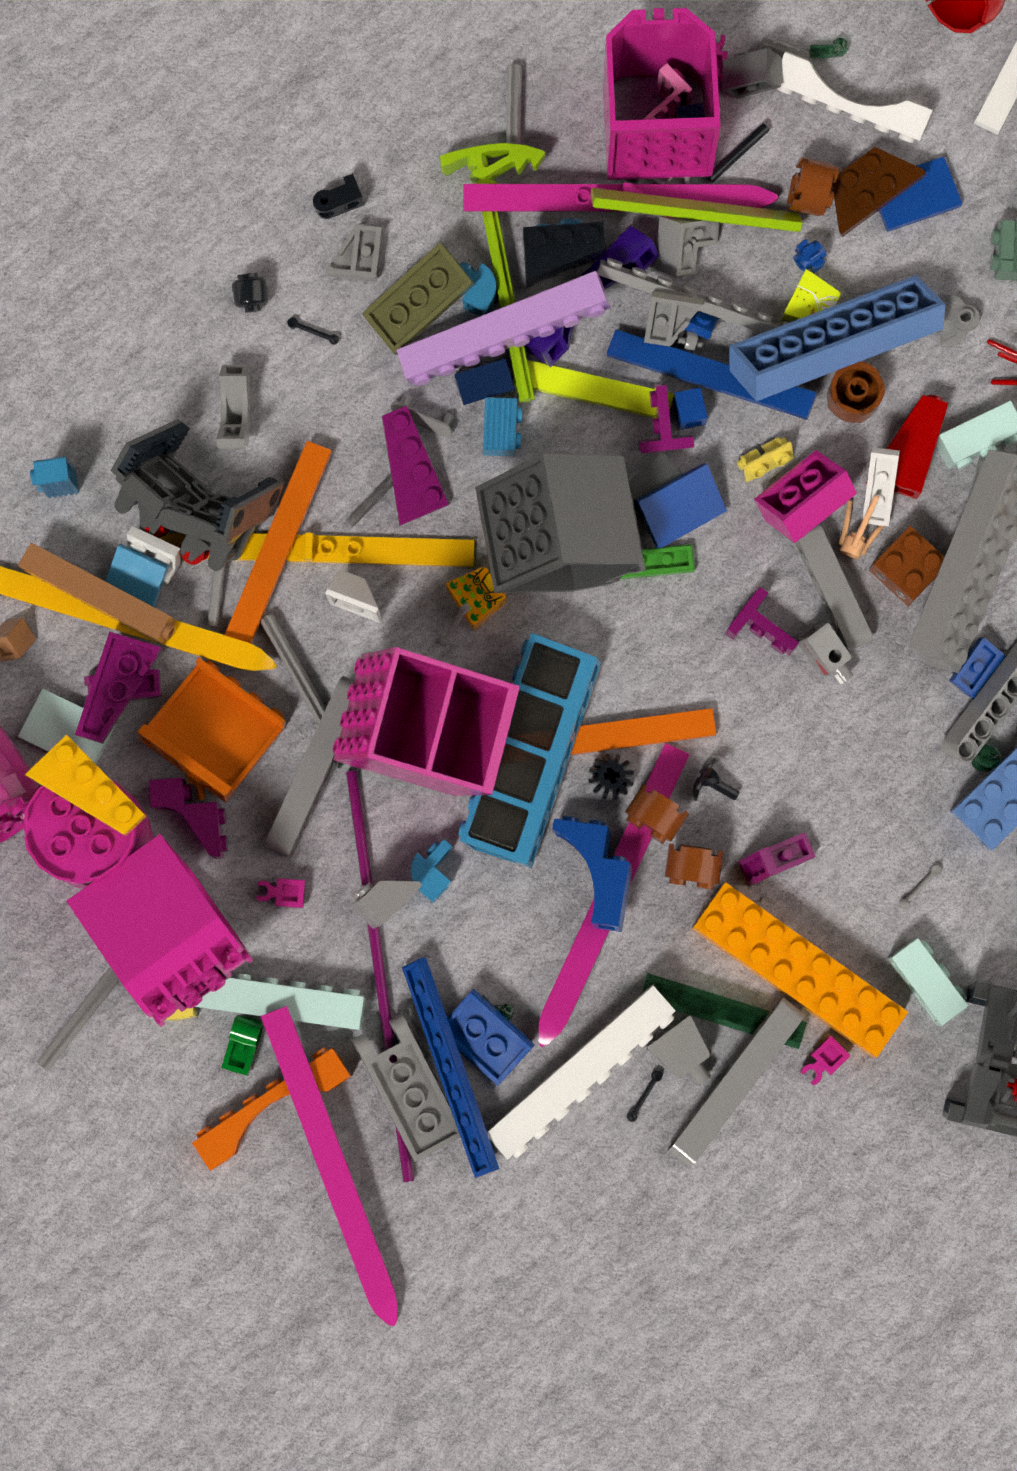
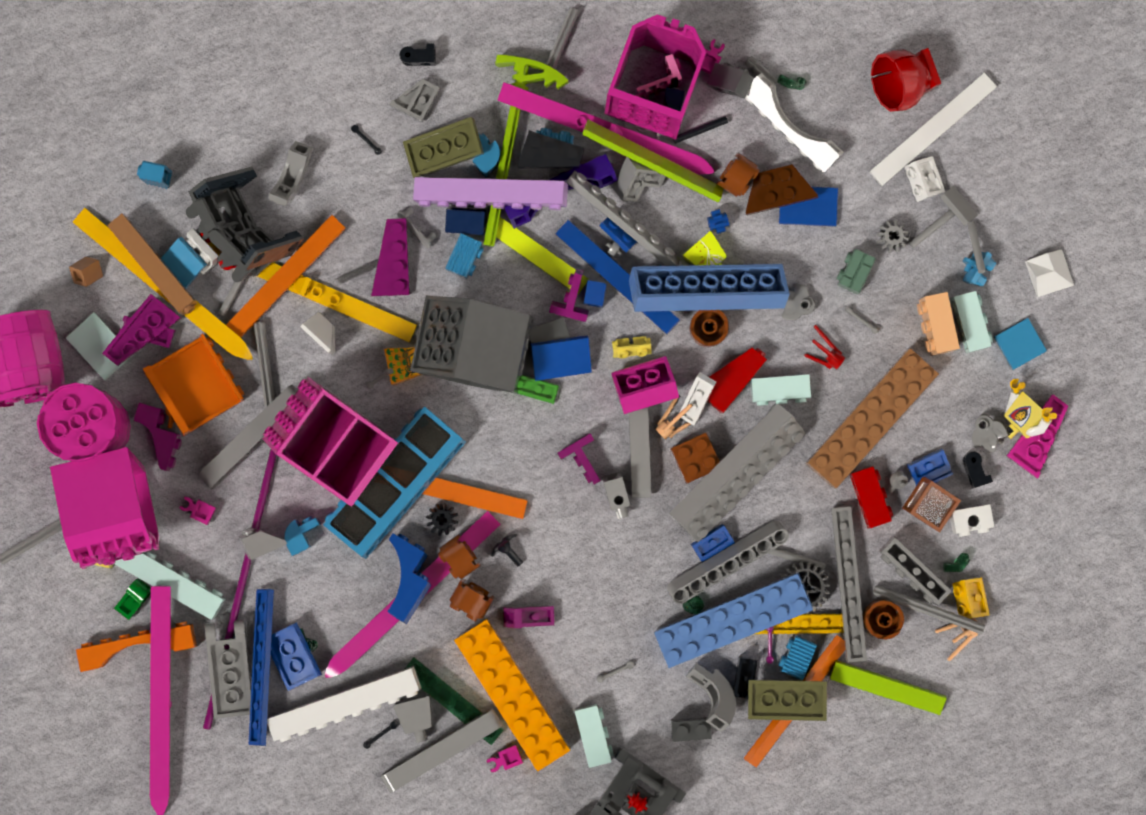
camera: 20 degrees right, 5 degrees up
(80, 781) = (88, 395): yellow wing -> none
(250, 292) = (333, 97): black head -> none
(669, 316) = (603, 228): light grey wing -> none

